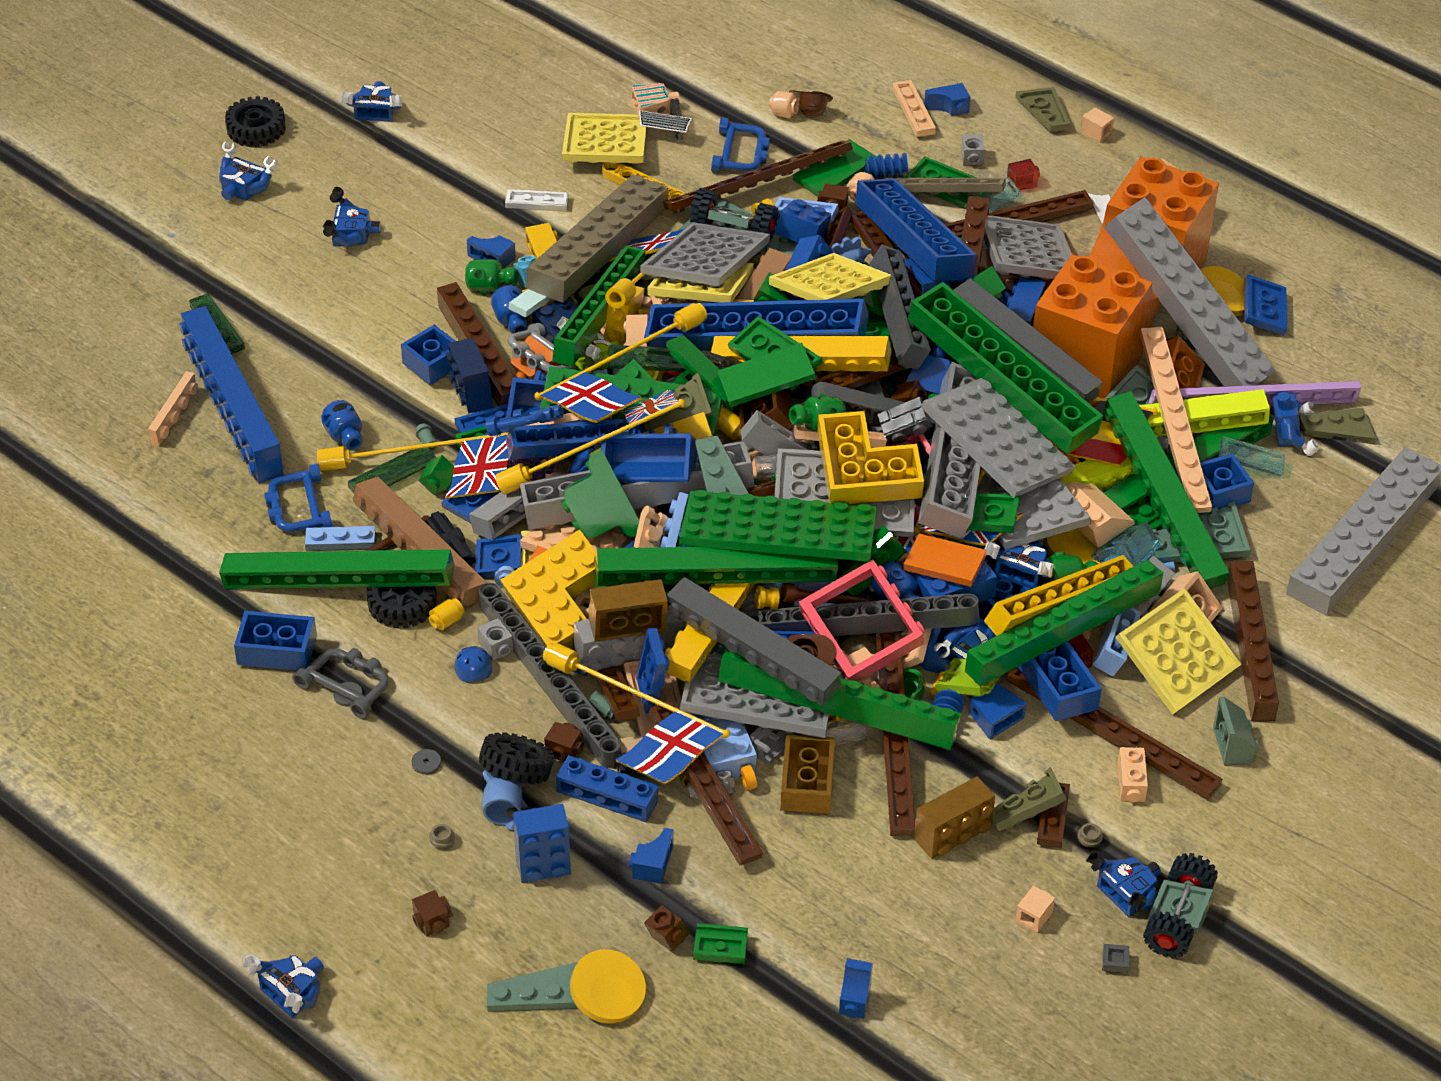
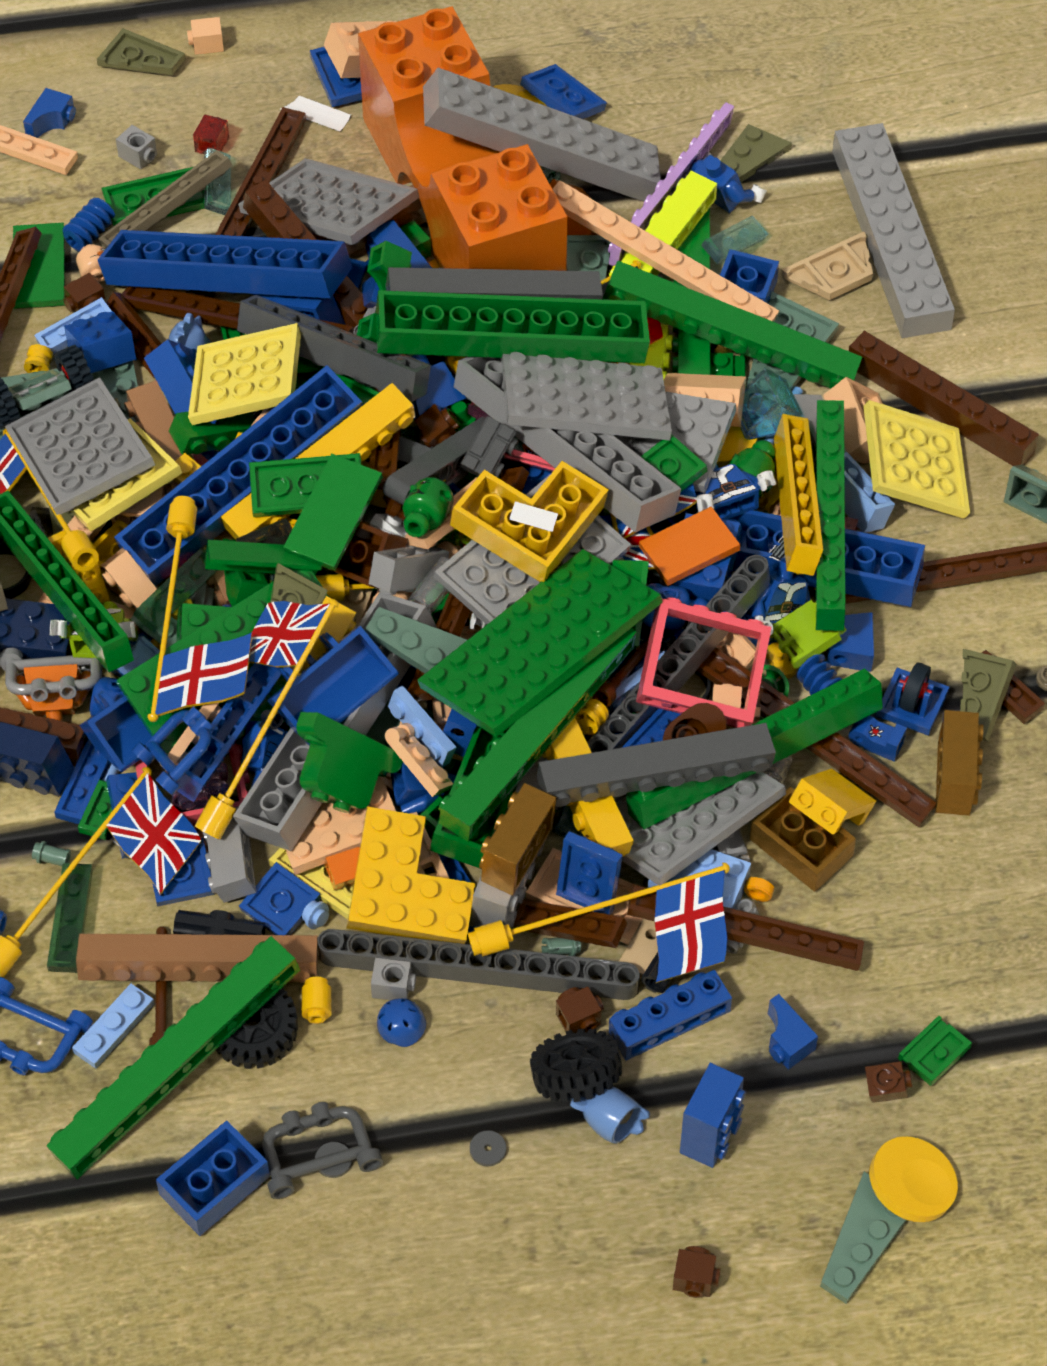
camera: 50 degrees left, 10 degrees up
(437, 475) = (121, 880): green brick -> none
(441, 836) = (600, 1198): dark tan plate -> none
(850, 764) = (831, 800): none -> yellow panel
(858, 457) = (533, 516): none -> white sticker
(936, 769) = (878, 737): none -> blue leg
(990, 763) = (913, 699): none -> blue plate
(1132, 774) = (1013, 597): light nougat brick -> none
(1295, 522) = (833, 269): none -> tan wing

